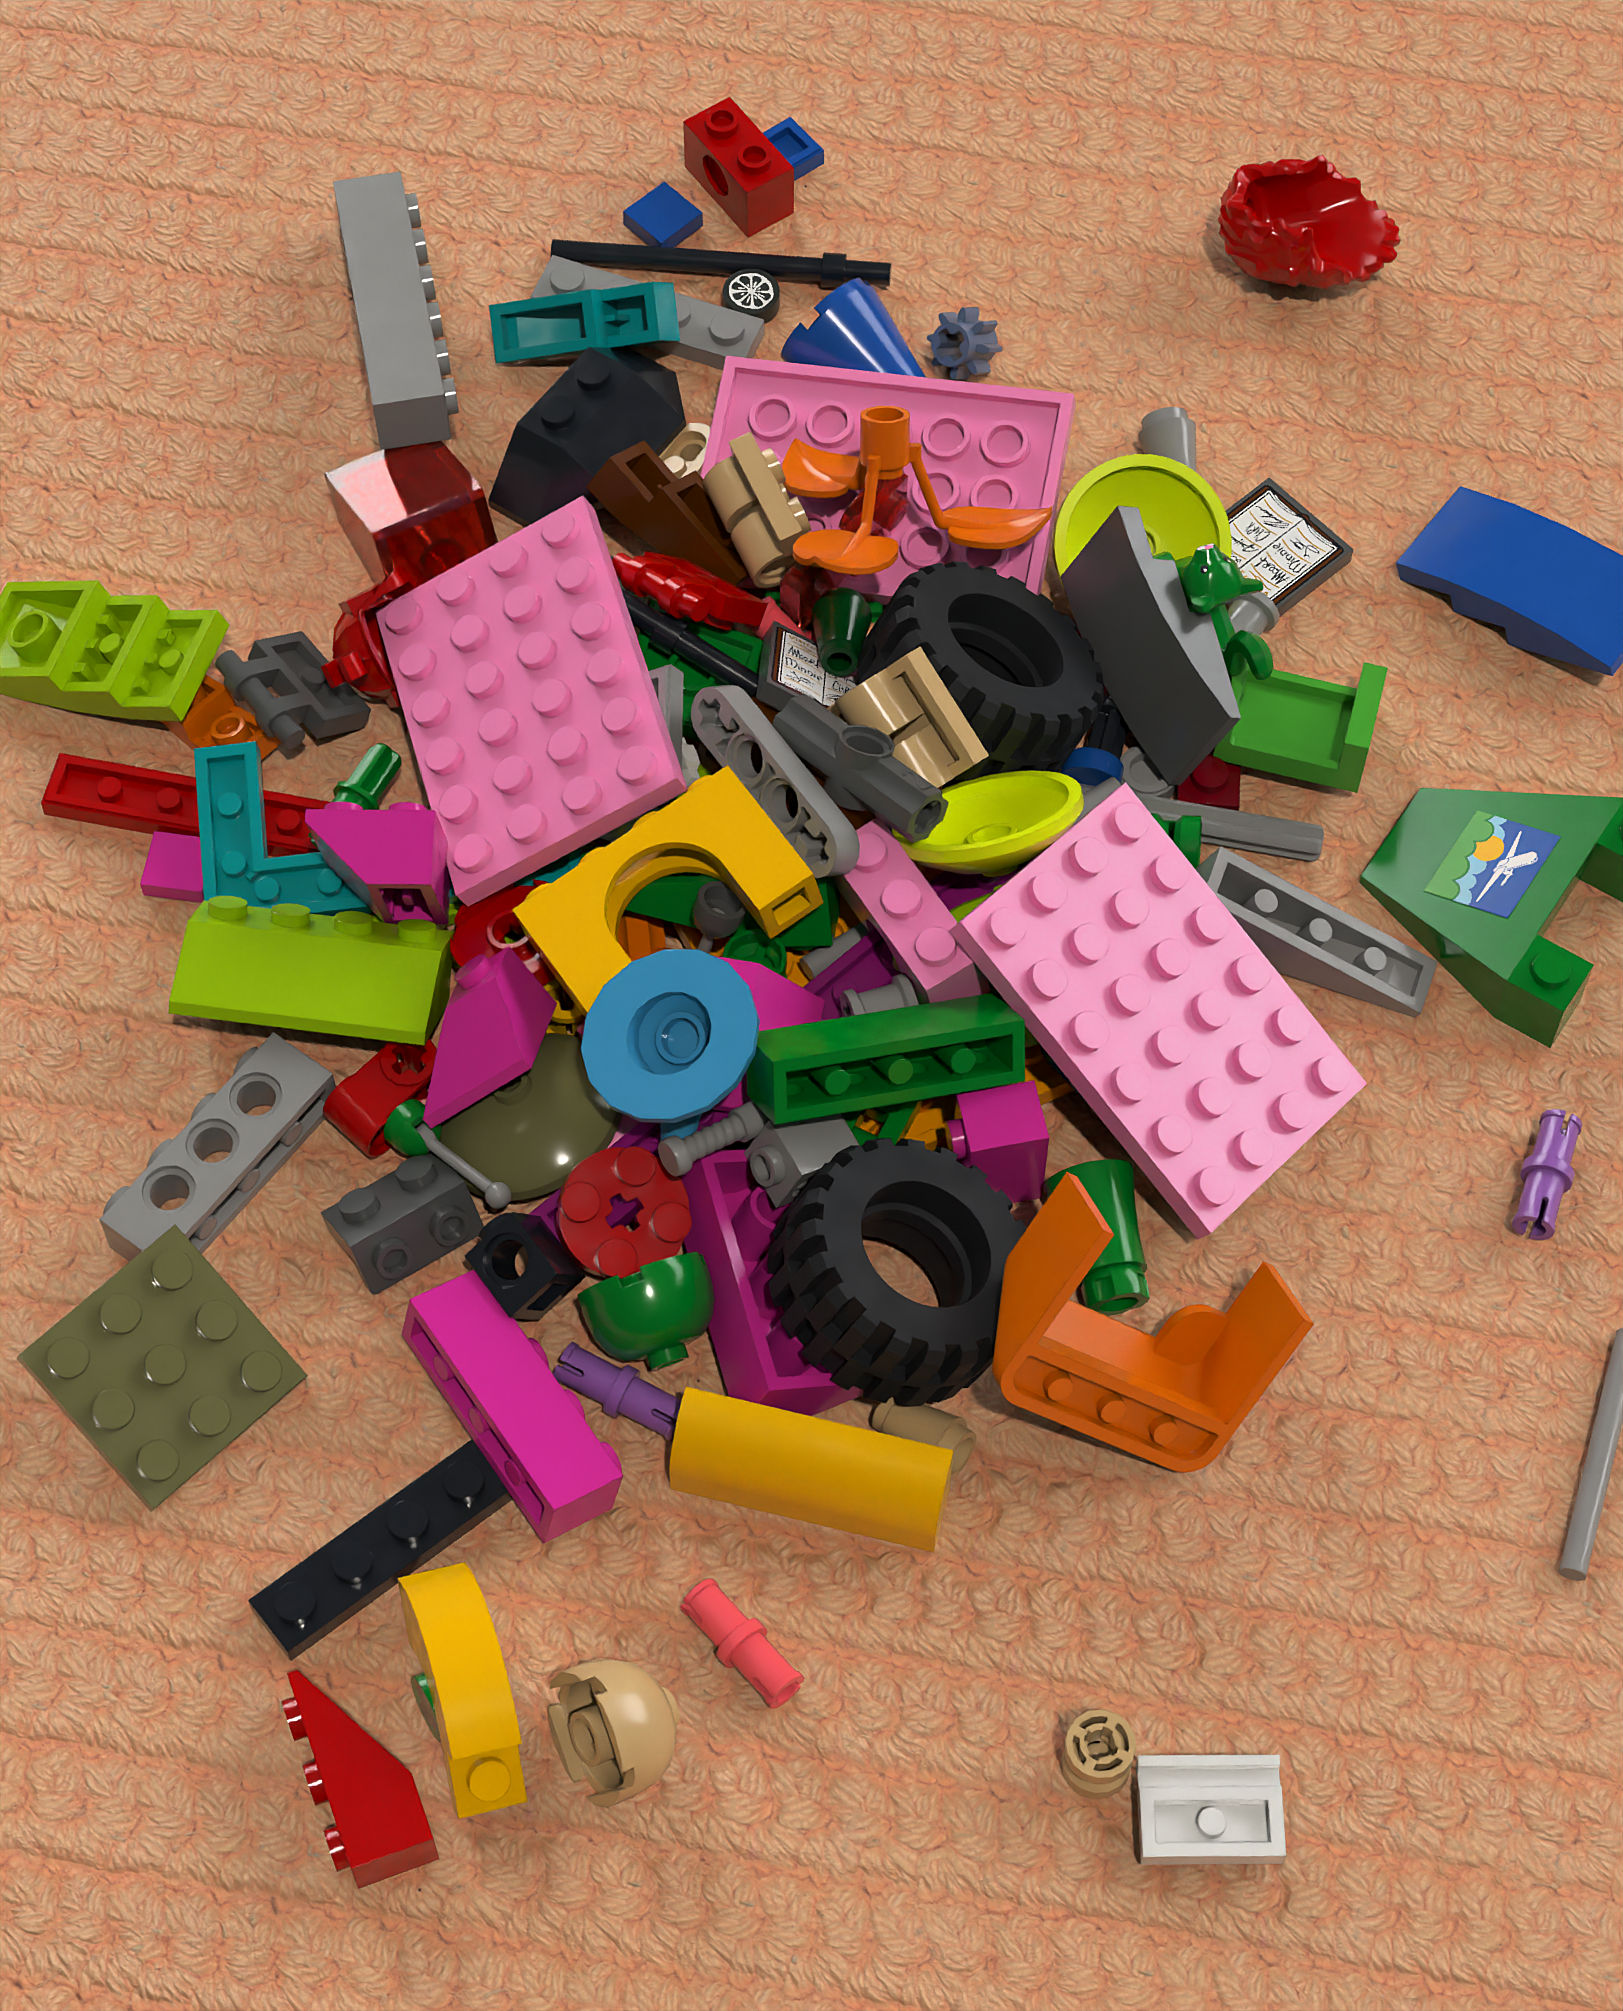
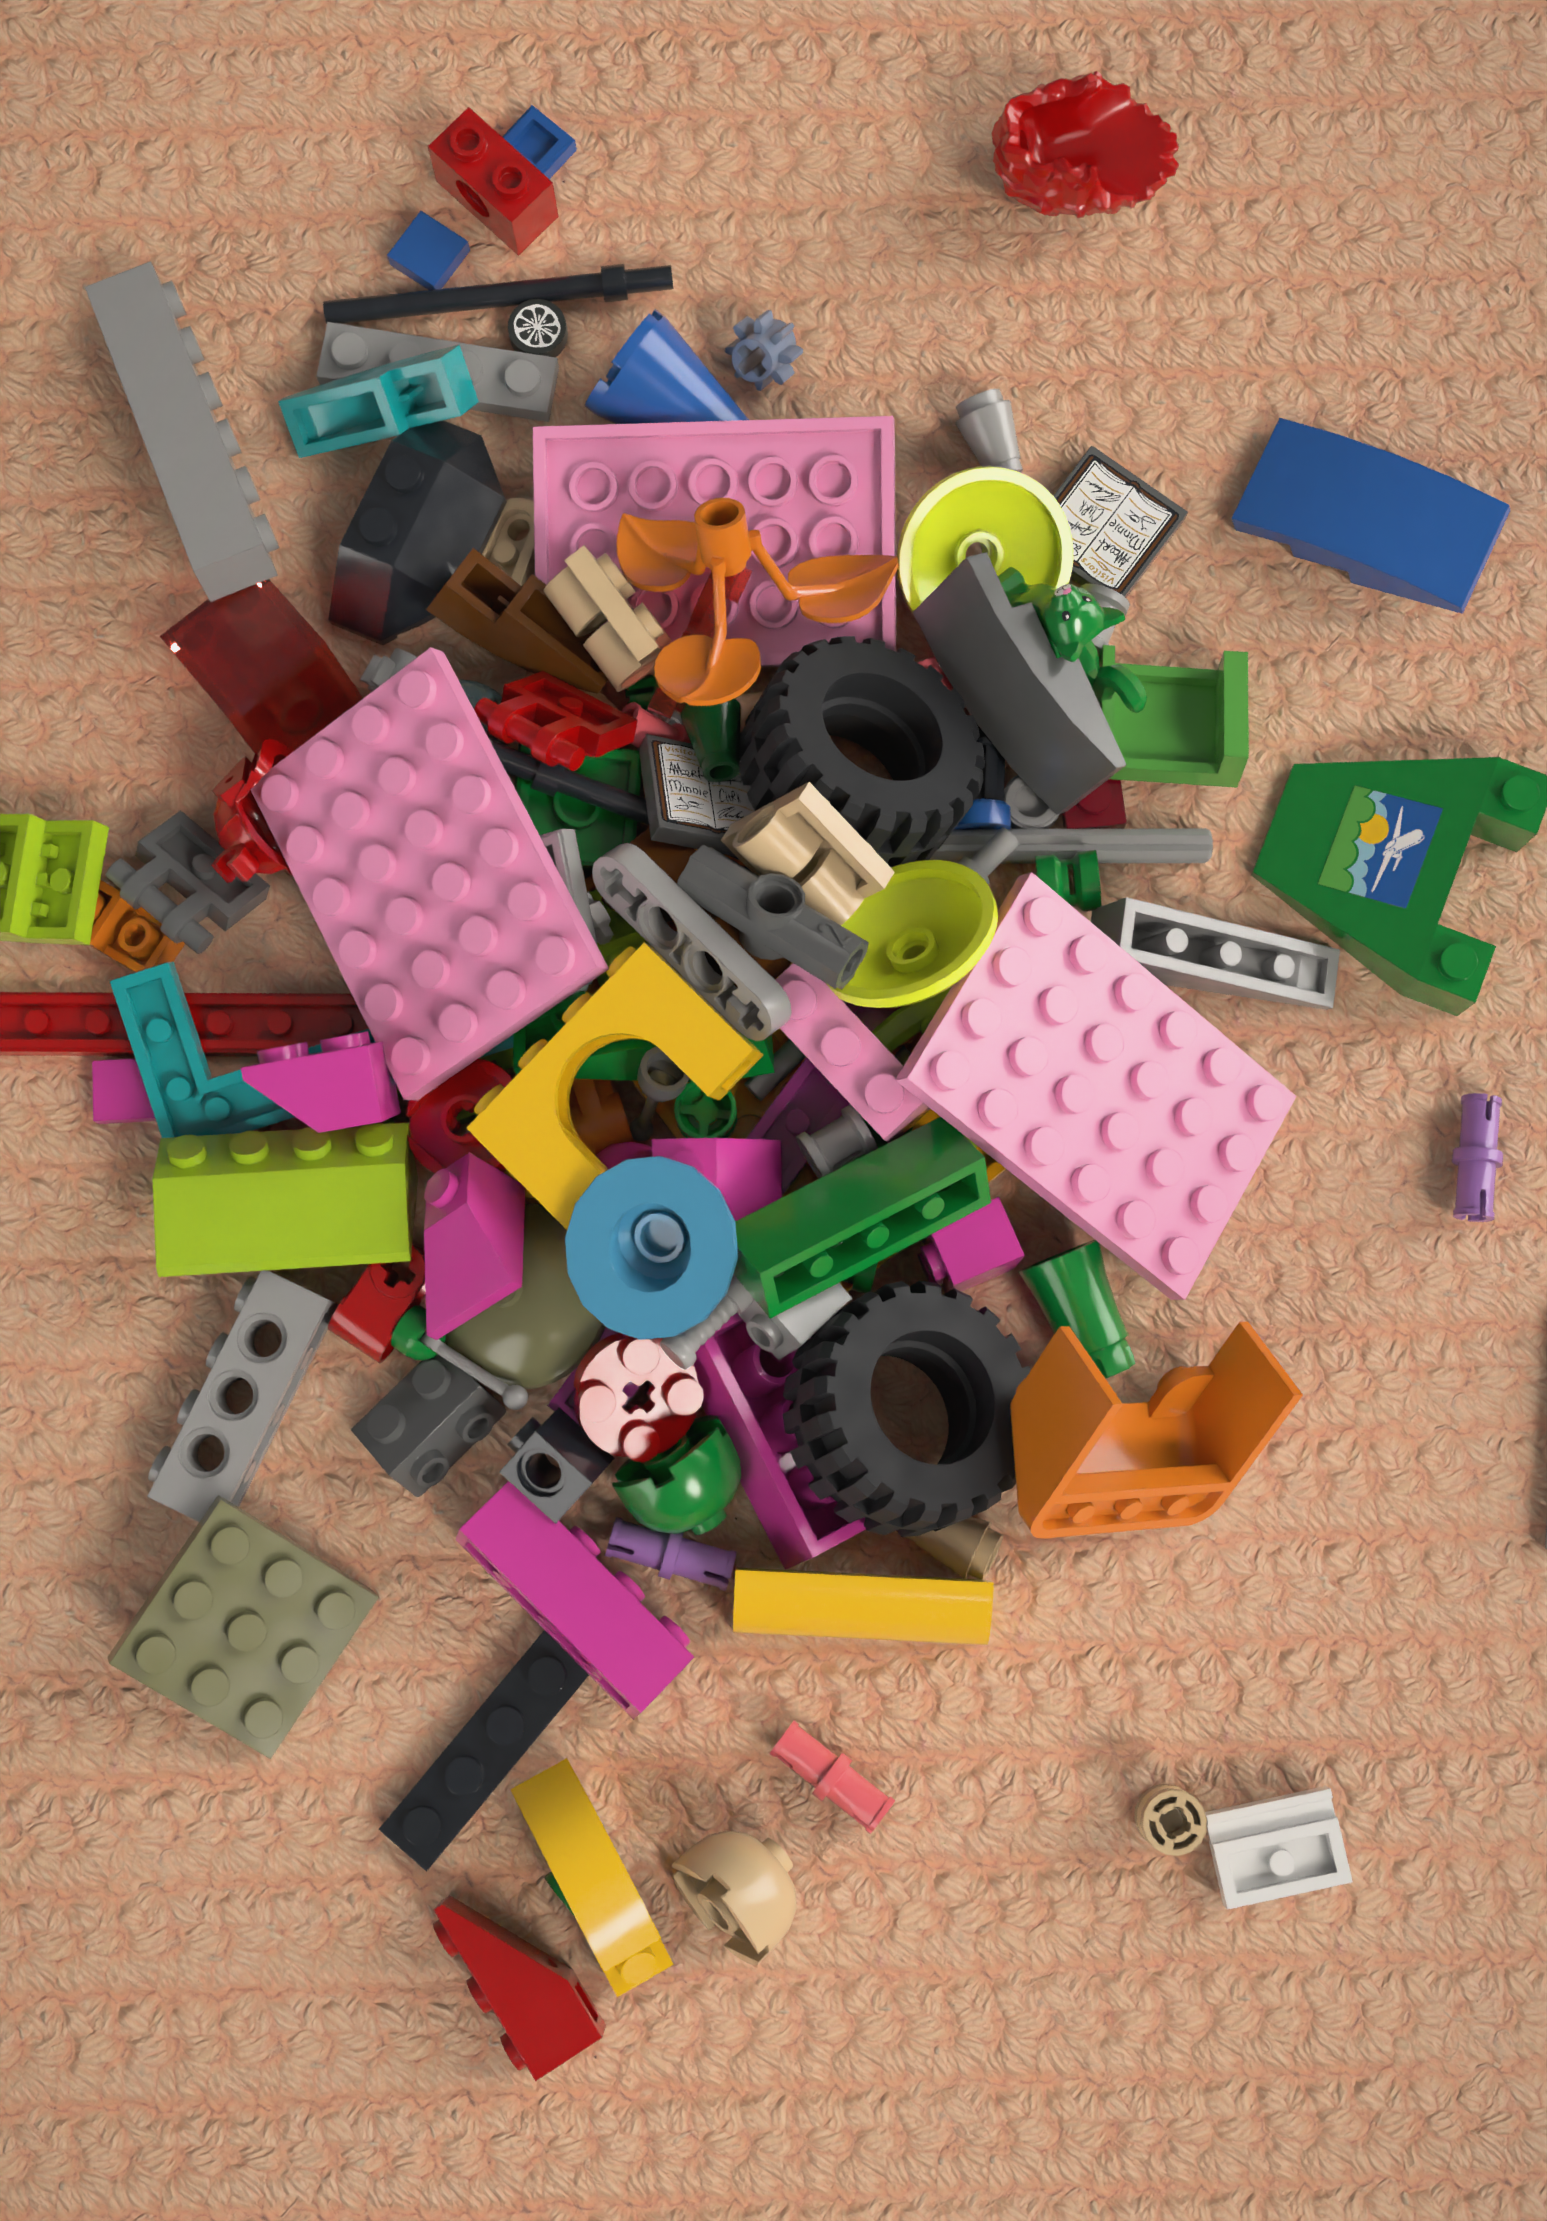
camera: 10 degrees left, 20 degrees up
(368, 779) = (280, 992): green axle -> none

